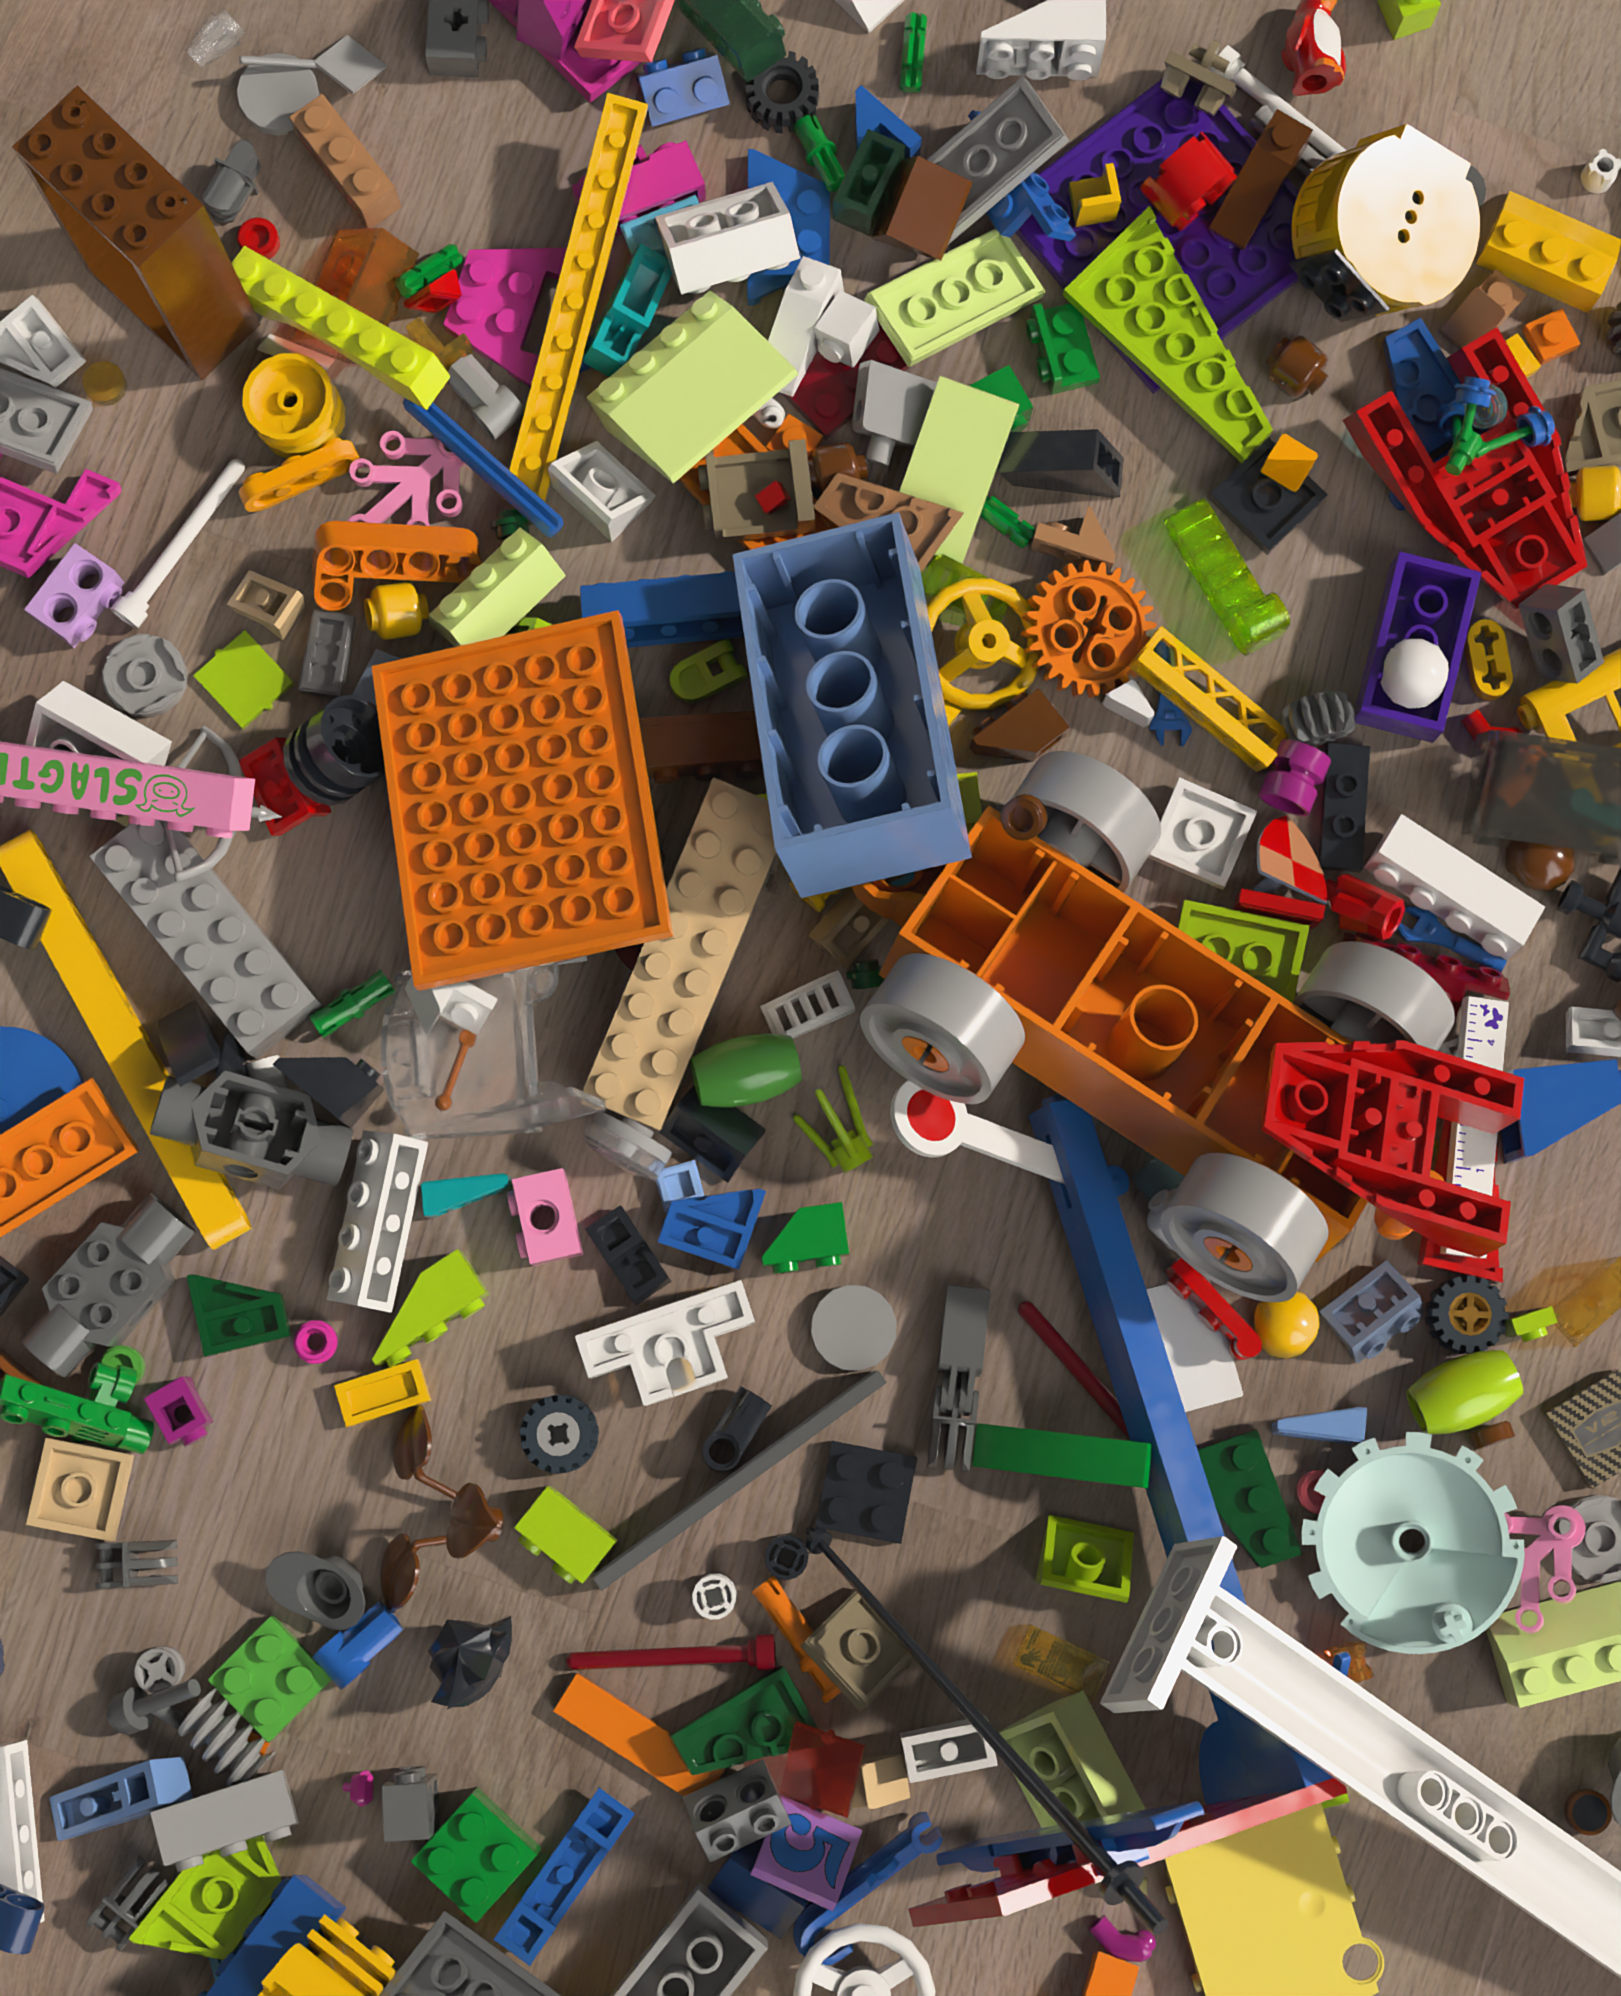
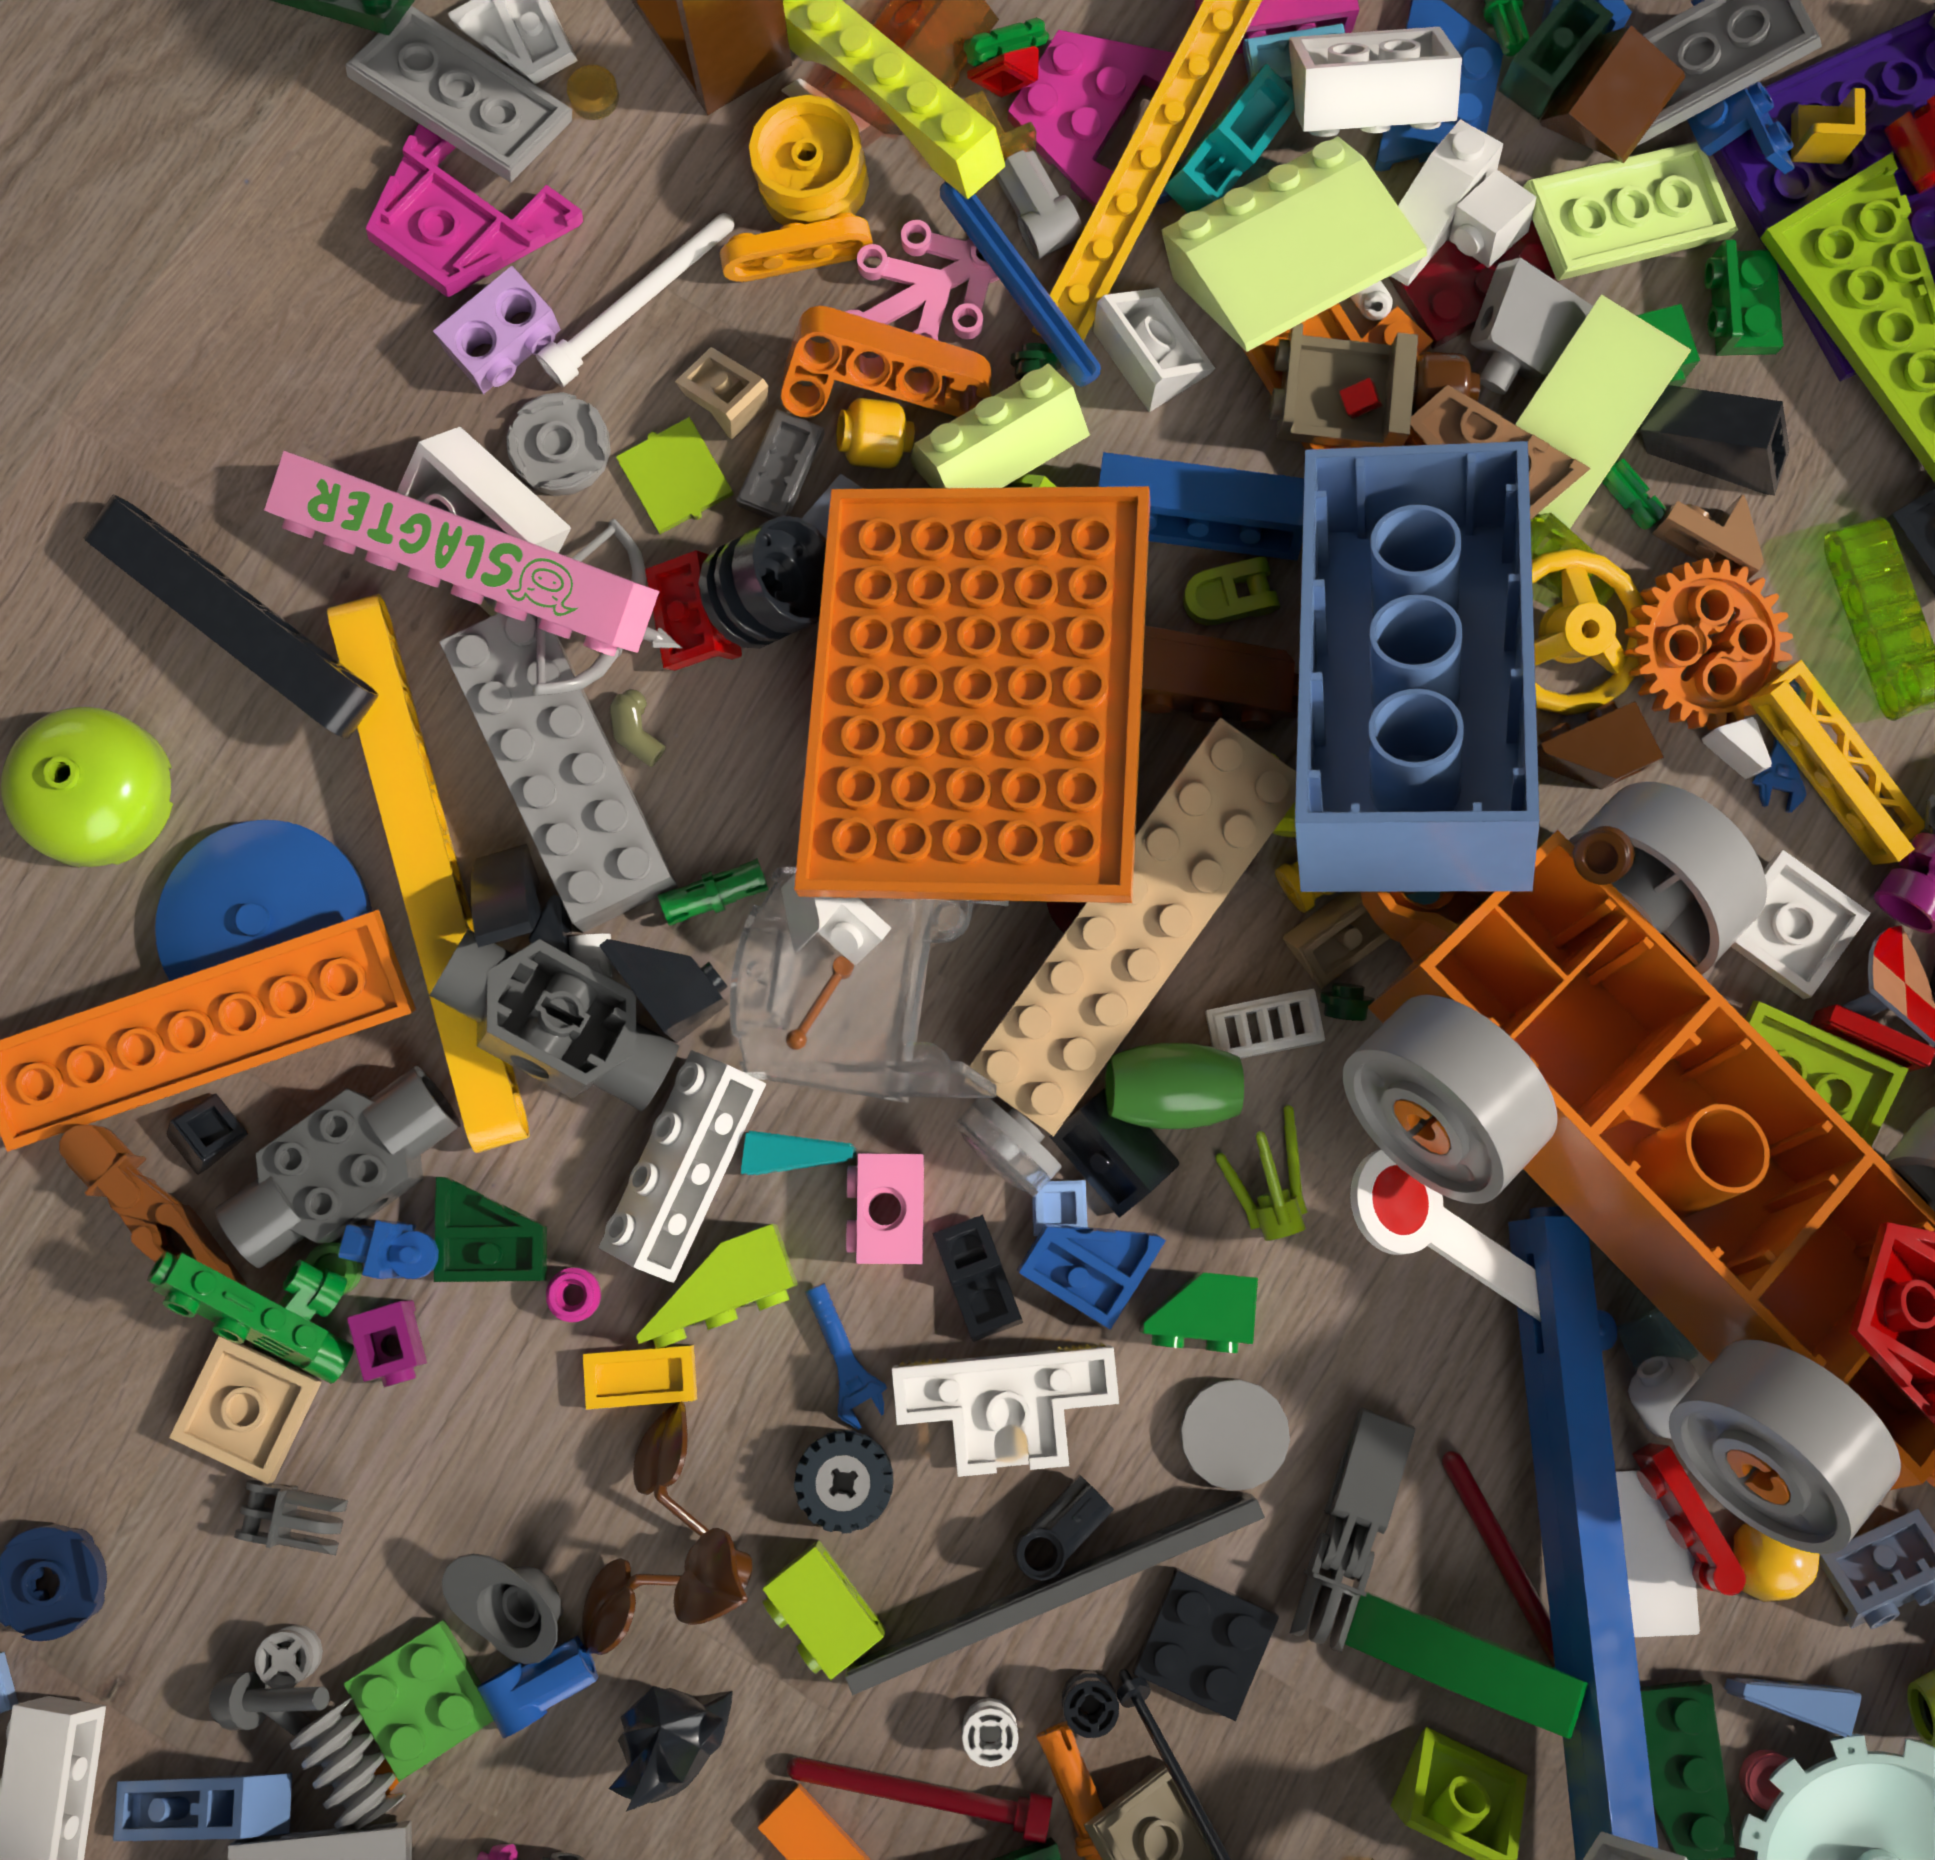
camera: 15 degrees right, 0 degrees up
(165, 1338) = (390, 1250): none -> blue hips
(254, 891) = (628, 730): none -> olive arm
(550, 1357) = (854, 1381): none -> blue piece

